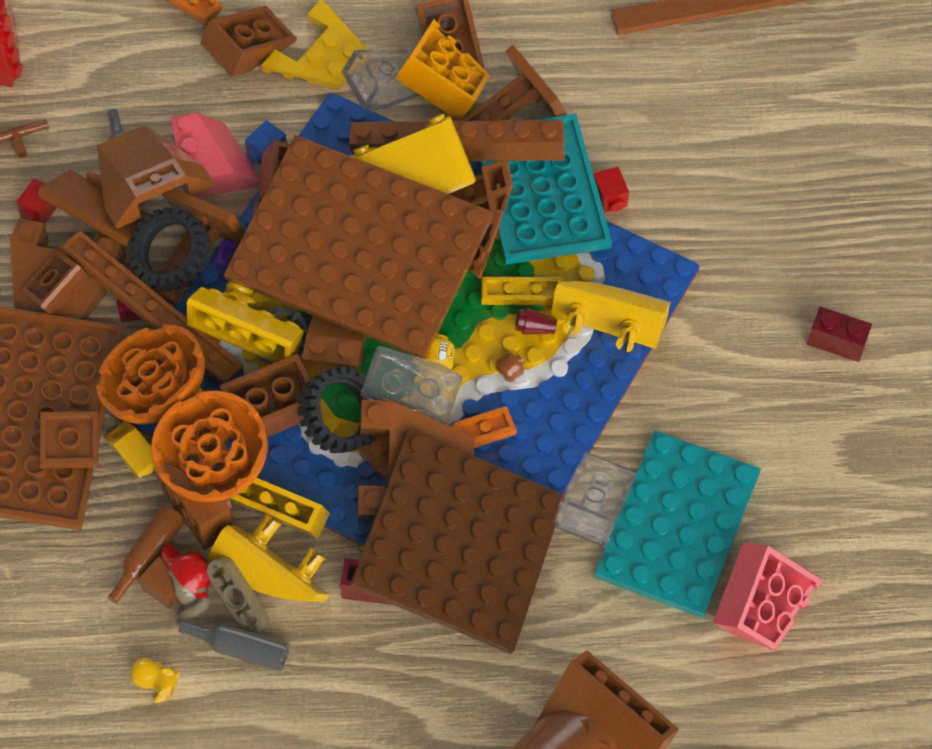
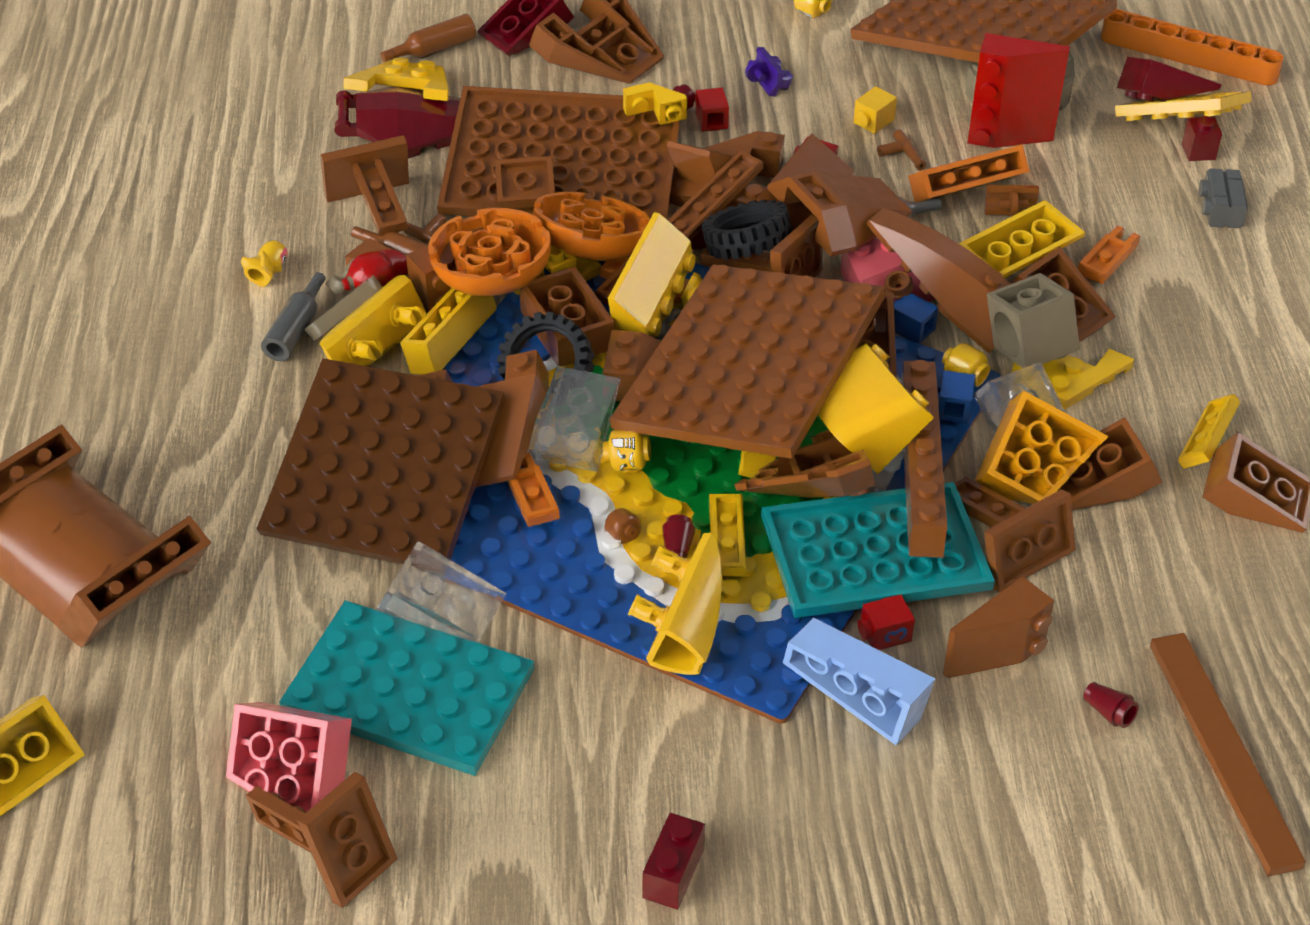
camera: 90 degrees right, 15 degrees down
(63, 575) = (370, 172): none -> dark orange piece
(79, 83) = (968, 173): none -> orange brick
(113, 539) = (426, 233): none -> dark orange piece
(114, 58) = (1009, 199): none -> dark orange hips
(189, 56) = (1023, 238): none -> yellow slope
(243, 140) = (898, 278): none -> dark orange plate
(247, 95) = (945, 270): none -> dark orange wedge
(309, 47) = (1033, 321): none -> dark tan brick
(337, 109) = (967, 360): none -> yellow head
(373, 111) = (956, 396): none -> blue brick
(625, 112) = (1000, 631): none -> dark orange slope
(676, 204) = (860, 678): none -> light blue wedge
(680, 61) = (1112, 704): none -> dark red cone
(866, 542) = (339, 831): none -> dark orange piece

